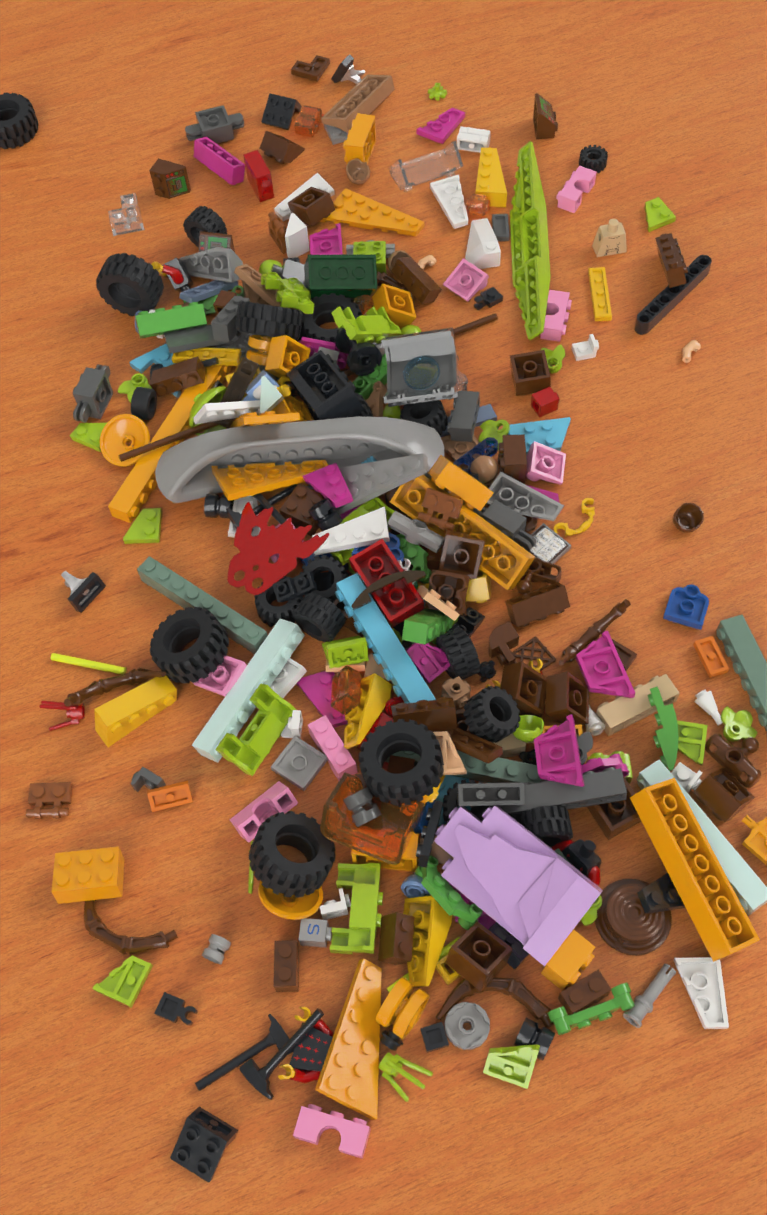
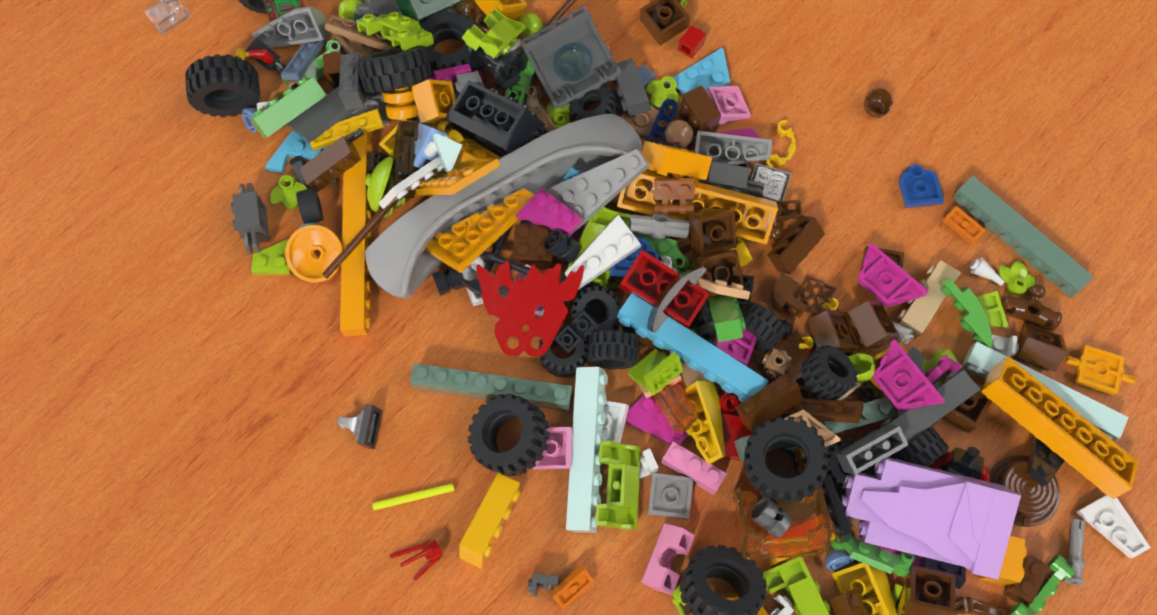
camera: 30 degrees left, 10 degrees up
(107, 684) = (447, 507): reddish brown animal -> none
(145, 527) = (385, 333): lime wing -> none
(593, 632) = (855, 248): reddish brown animal -> none

